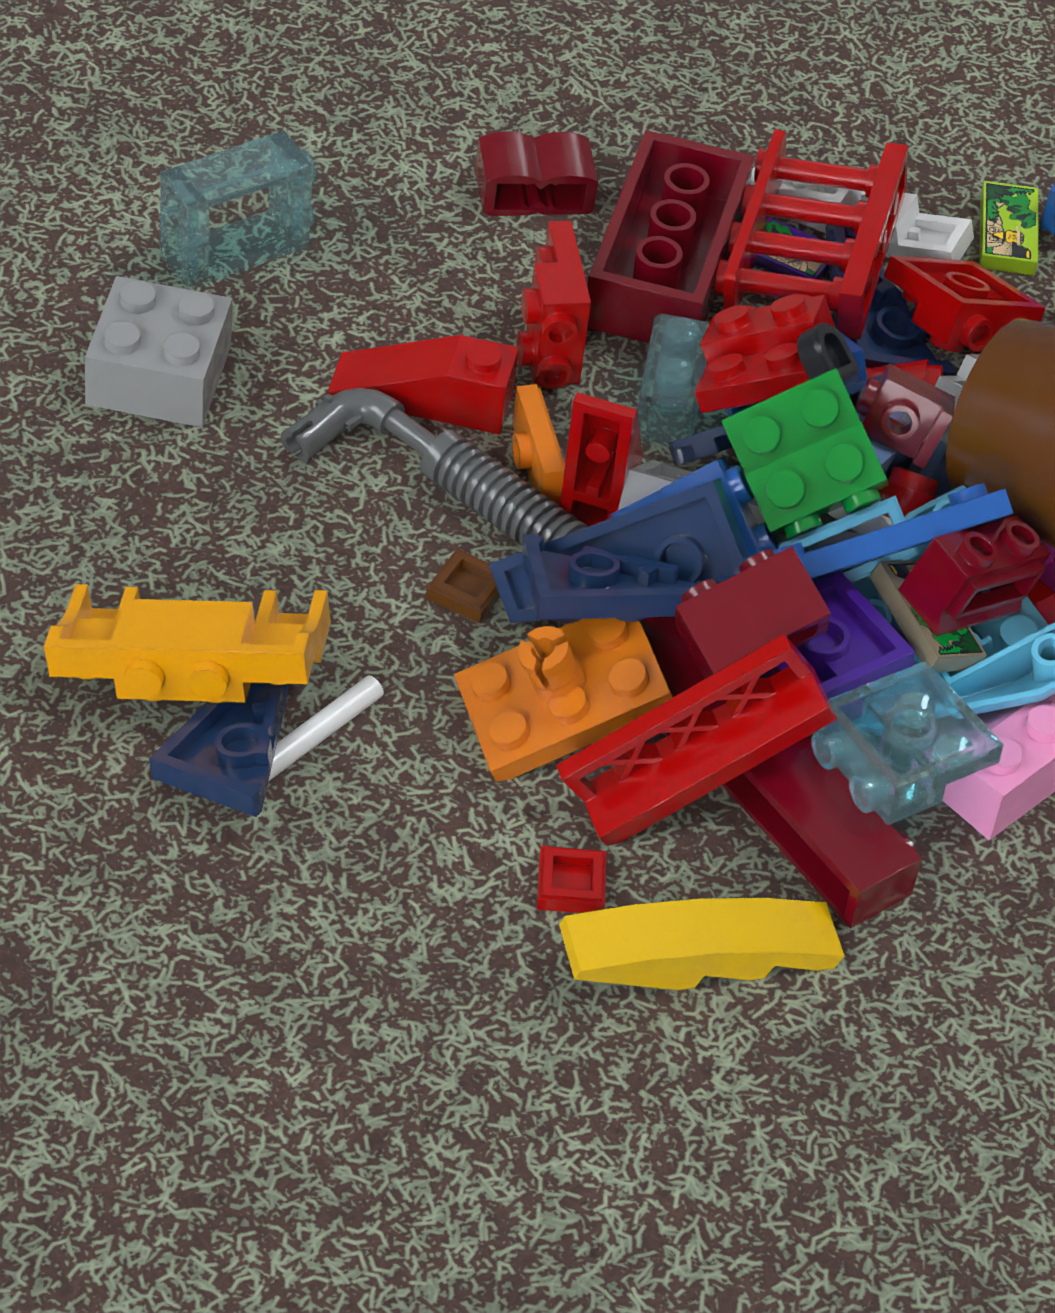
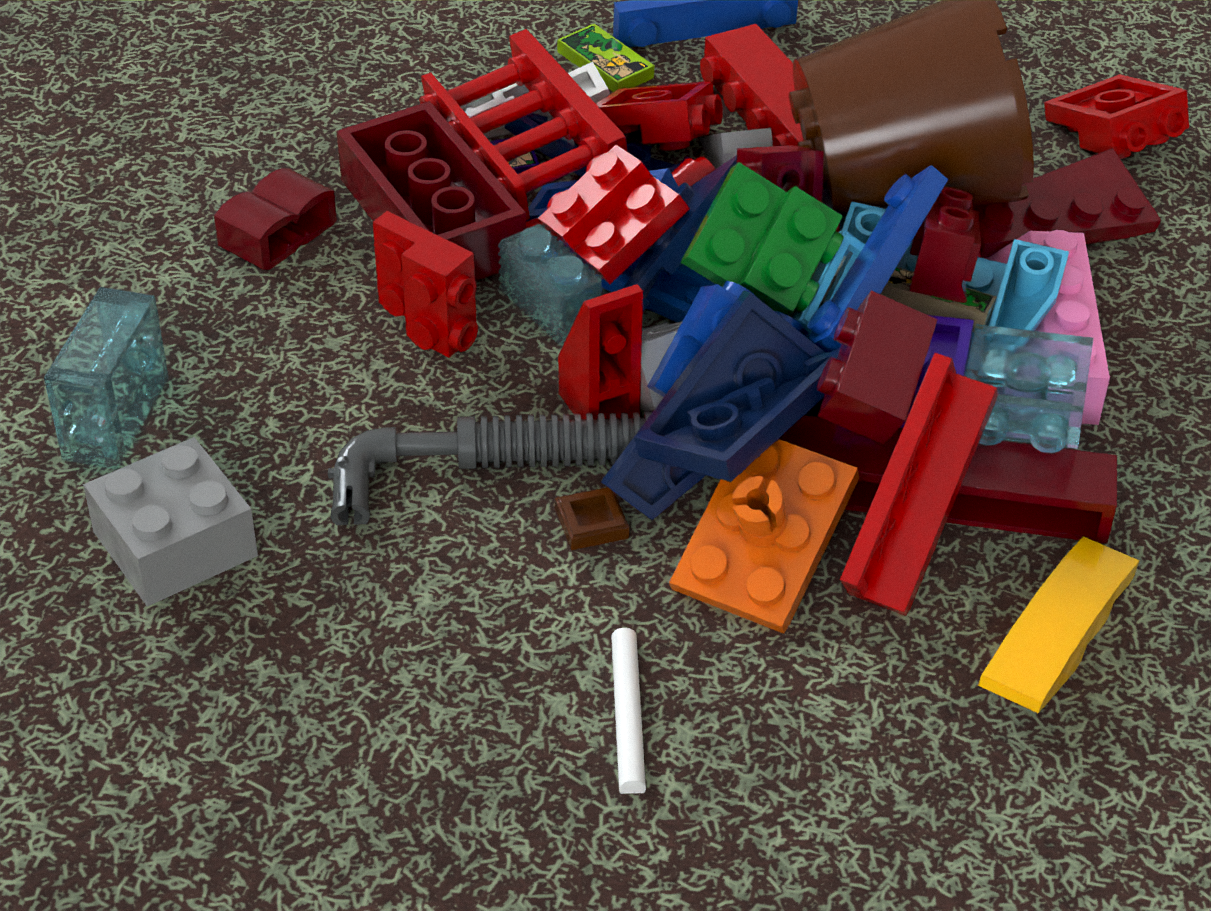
camera: 40 degrees left, 5 degrees down
(187, 645) = (492, 708): light orange bracket -> none
(226, 749) = (591, 754): dark blue wing -> none
(438, 379) = (398, 389): red slope -> none
(536, 443) = (518, 386): orange plate -> none
(571, 879) = (922, 656): red tile -> none
(825, 349) = (679, 178): black tile -> none

